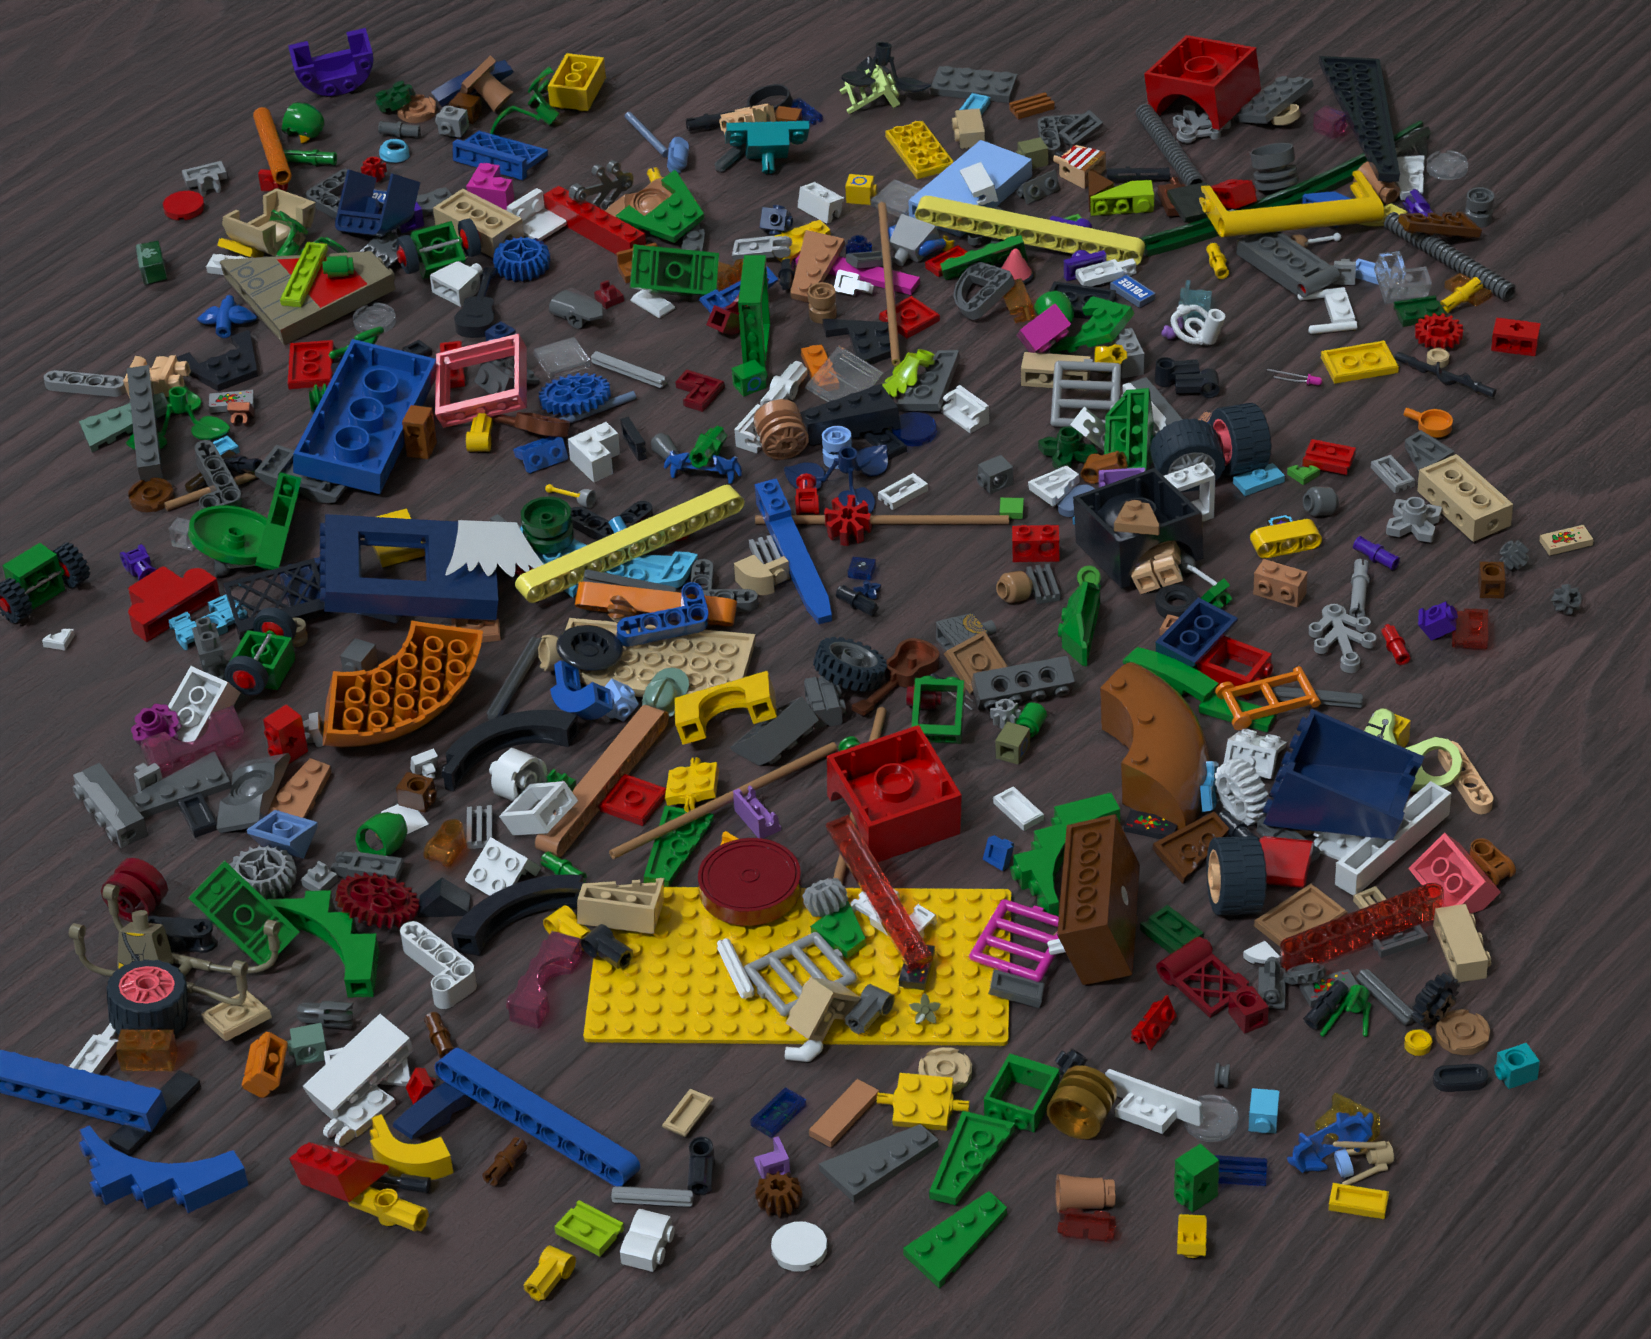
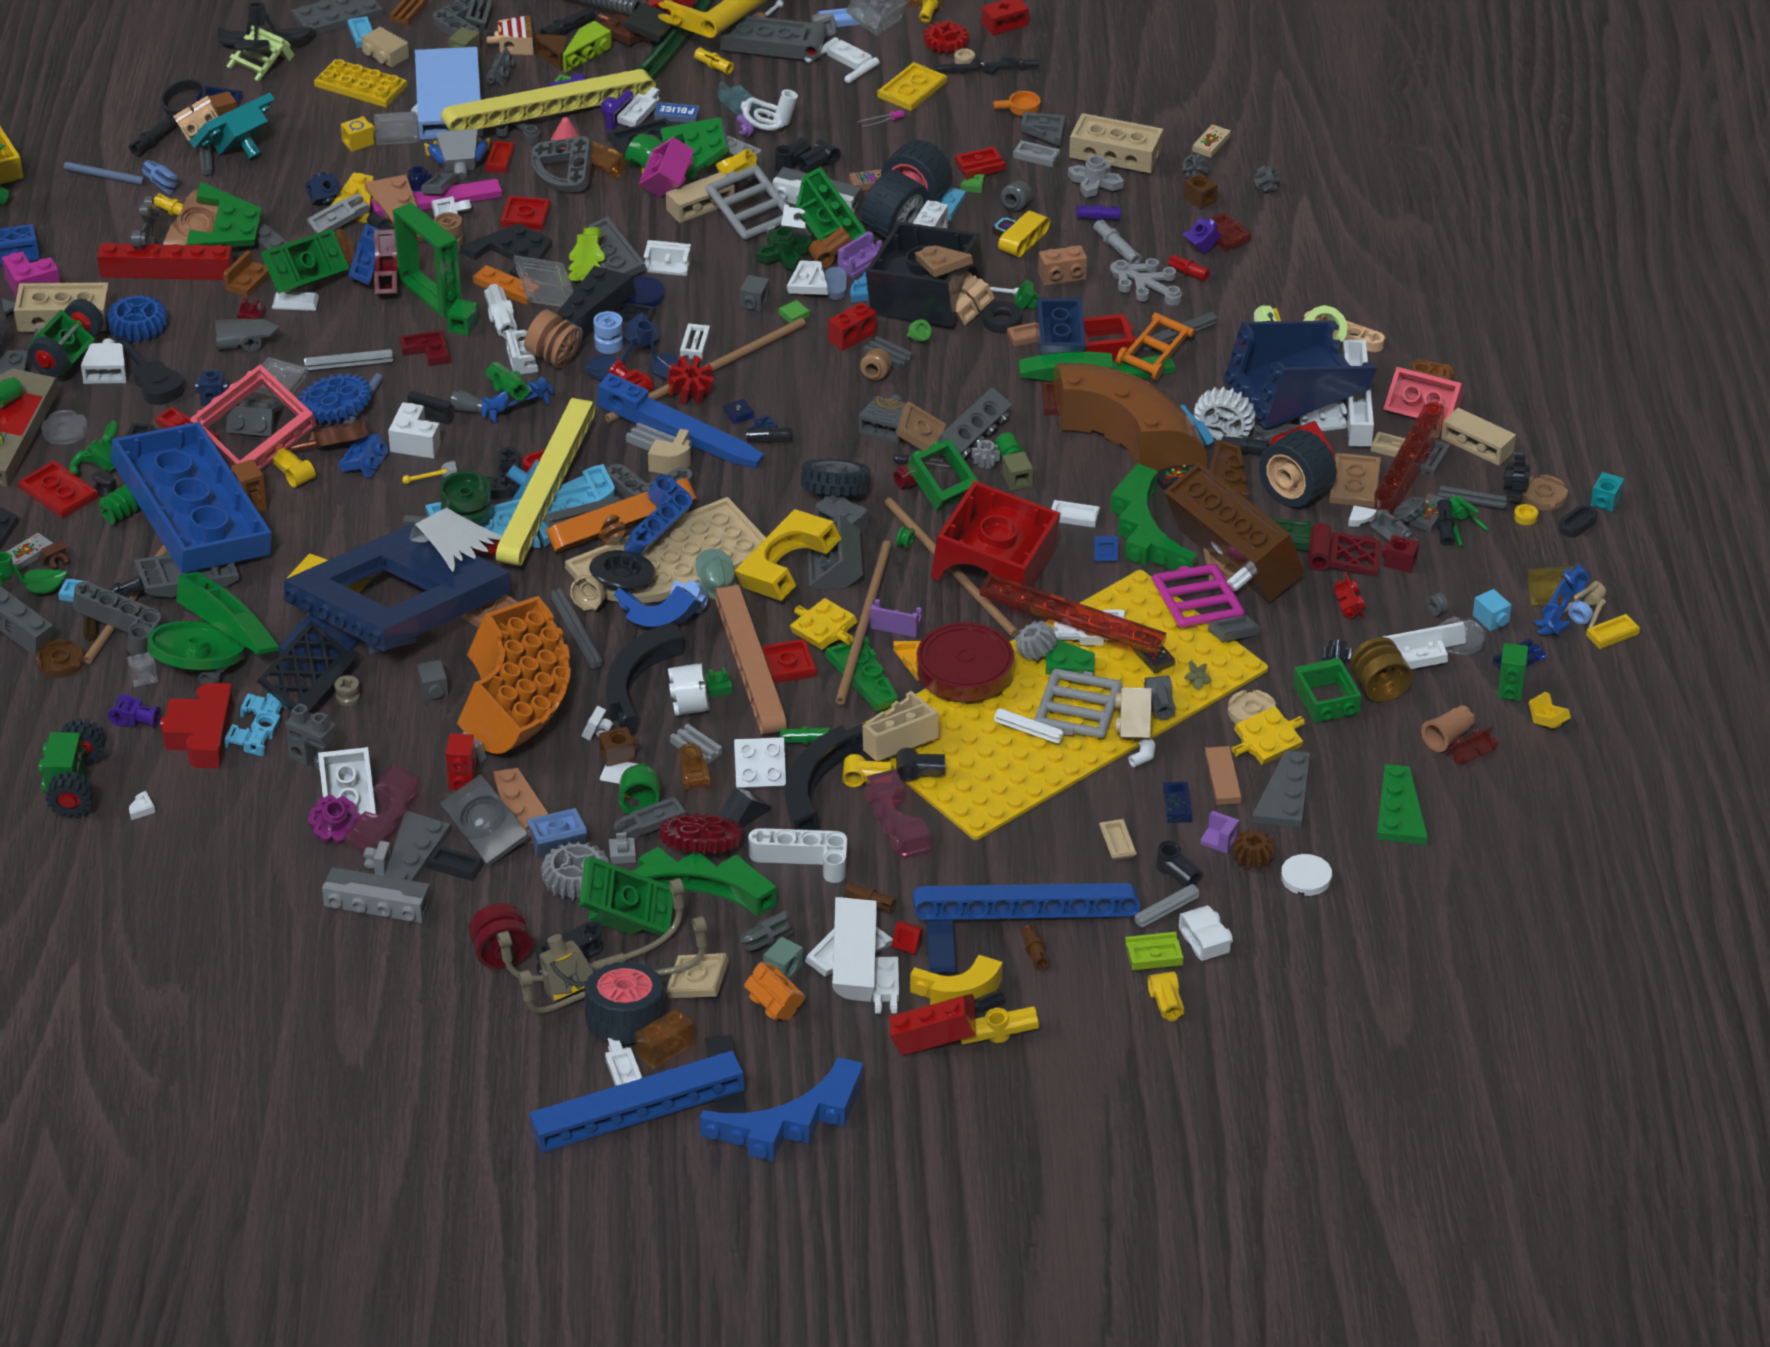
camera: 45 degrees left, 0 degrees up
(263, 654) = (355, 712): brick -> none
(535, 218) = (118, 281): white bracket -> none
(535, 806) = (747, 713): white window -> none
(820, 202) = (337, 158): white hinge -> none
(889, 287) = (485, 192): medium nougat piece -> none
(910, 661) = (872, 452): copper piece -> none
(968, 1154) = (1339, 746): green wing -> none
(979, 183) = (469, 79): white hinge -> none
(991, 254) = (542, 132): green wing -> none
(1080, 621) = (960, 364): green wedge -> none
(1255, 749) = (1189, 387): white bracket -> none
(1412, 309) = (907, 30): dark green plate -> none

